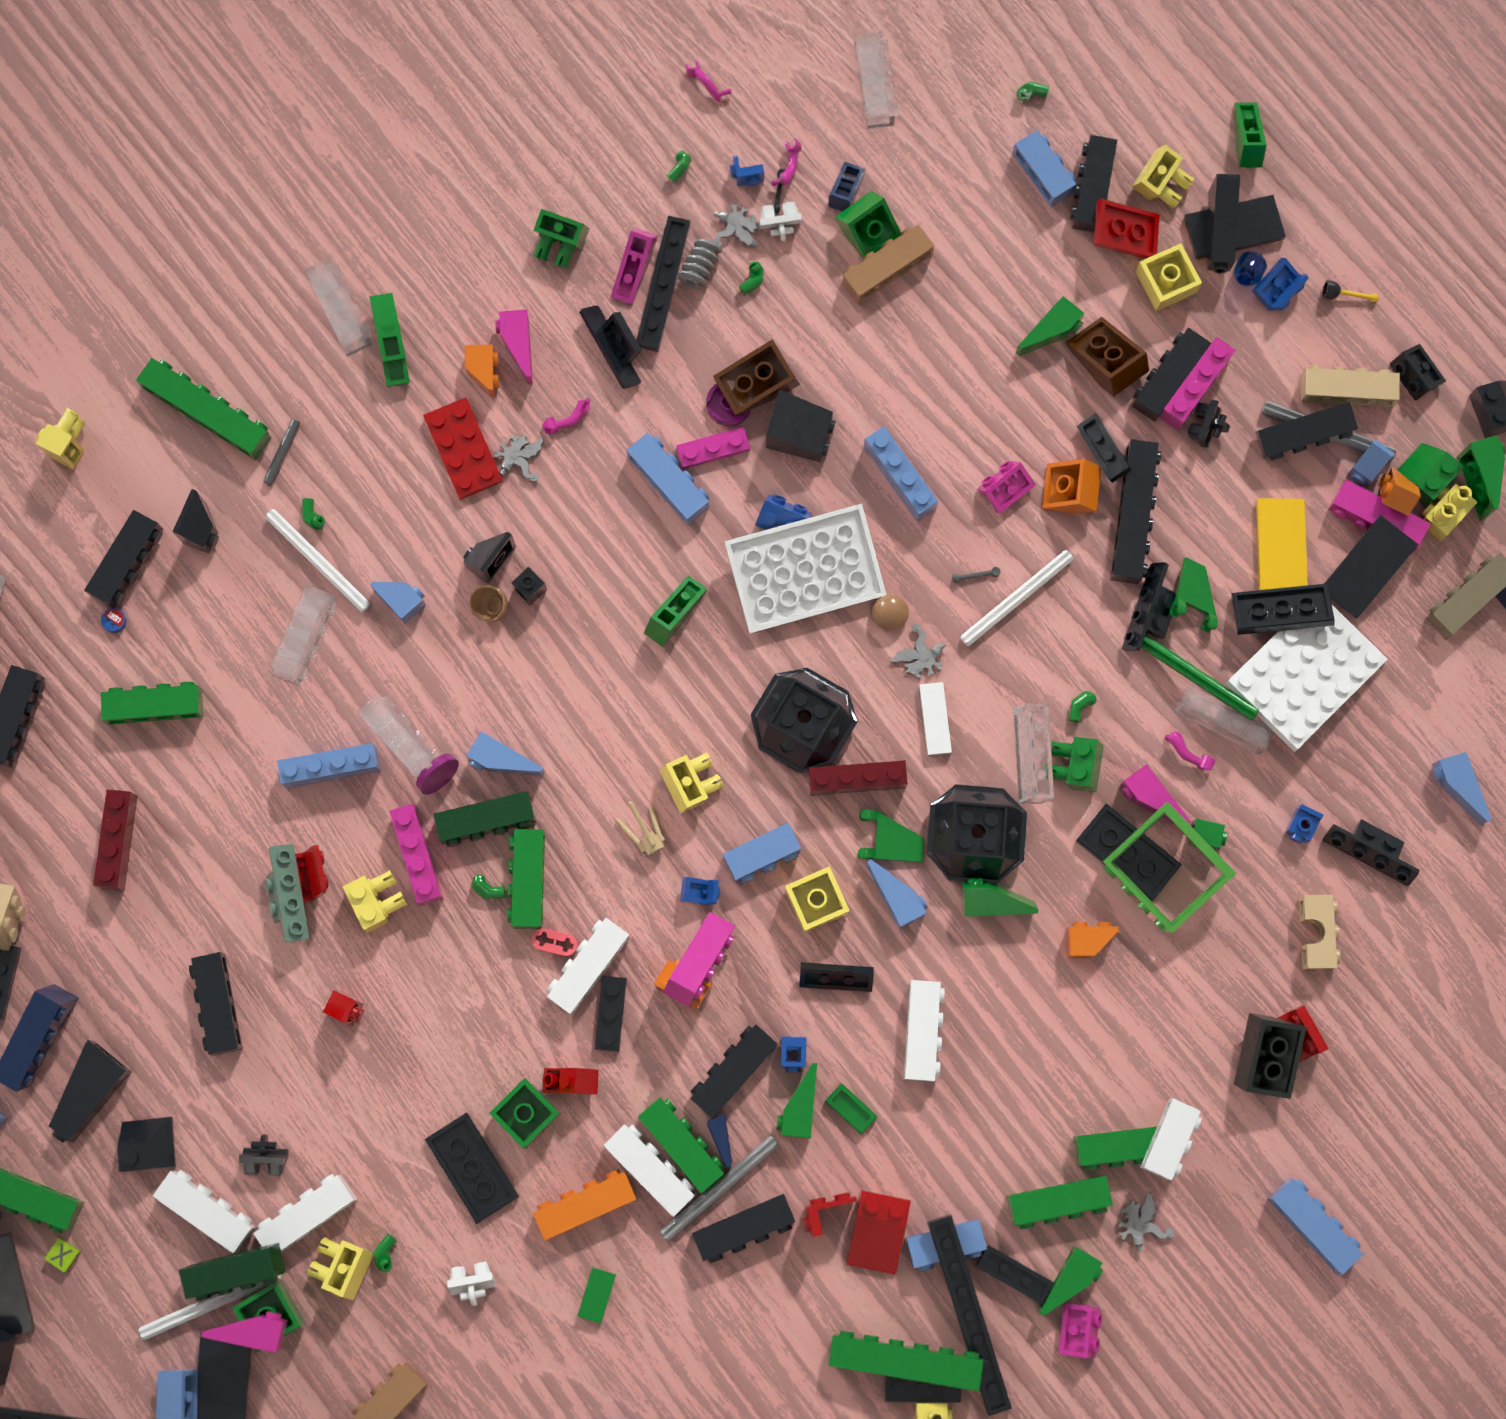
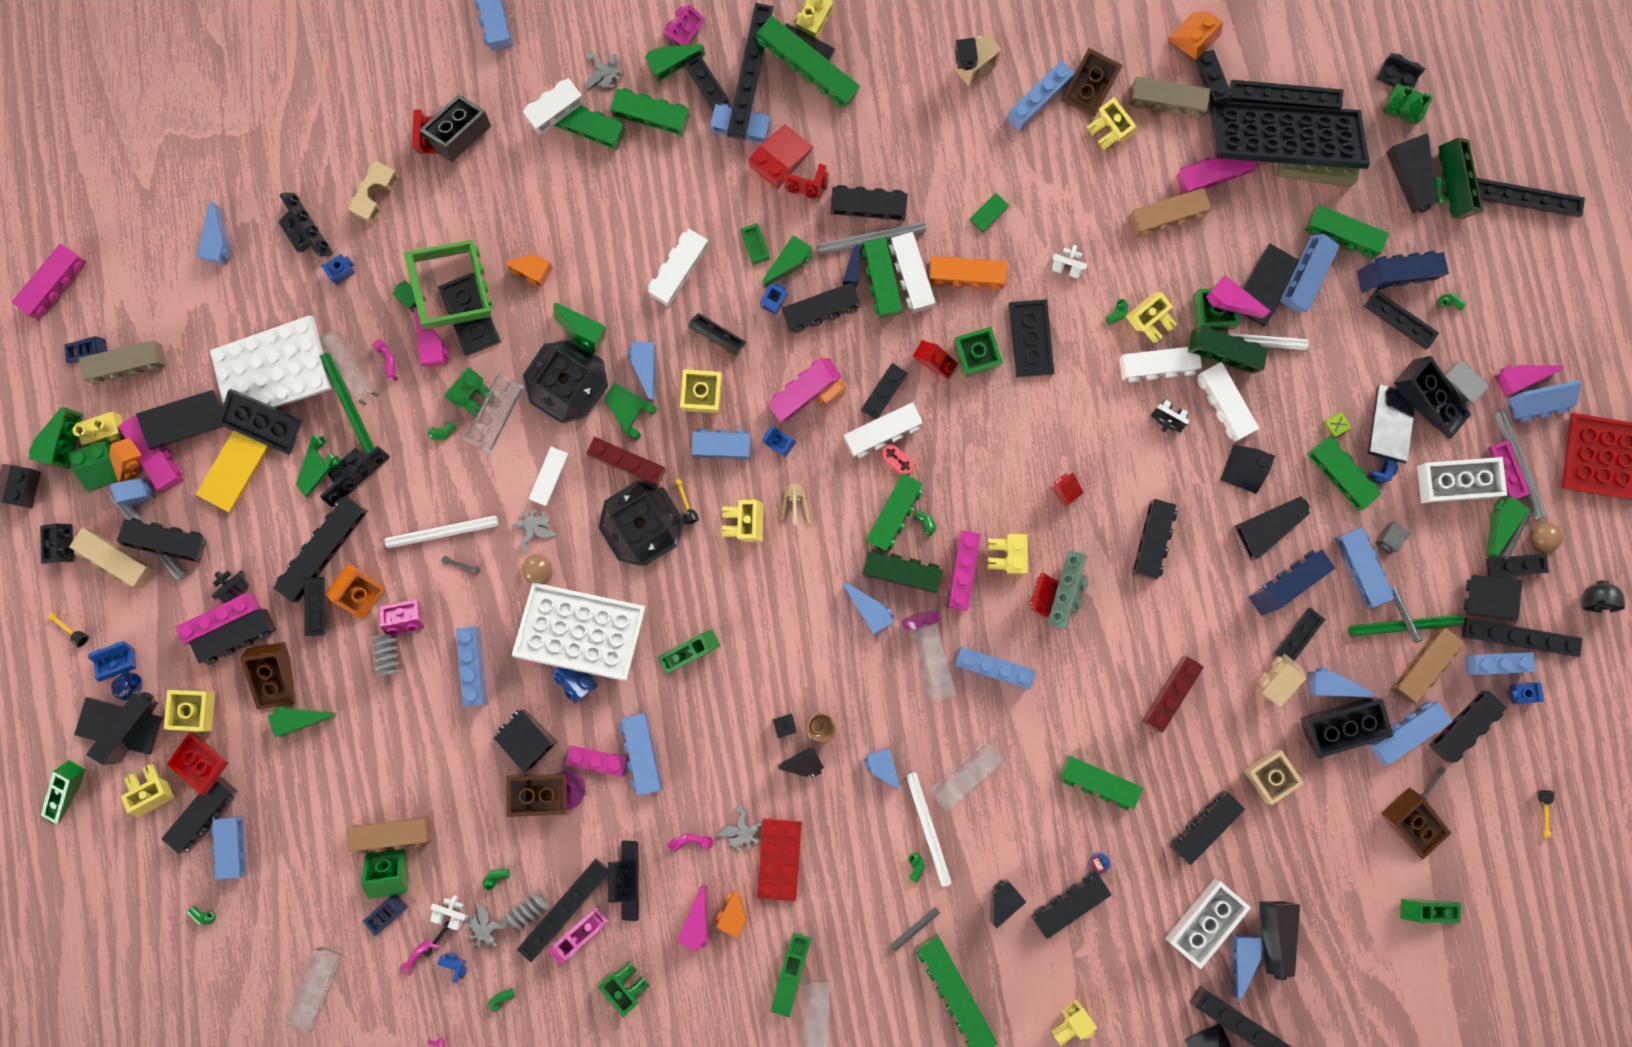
camera: 150 degrees left, 5 degrees up
(755, 758) = (690, 515): none -> hinge
(997, 438) = (385, 655): none -> light grey piece

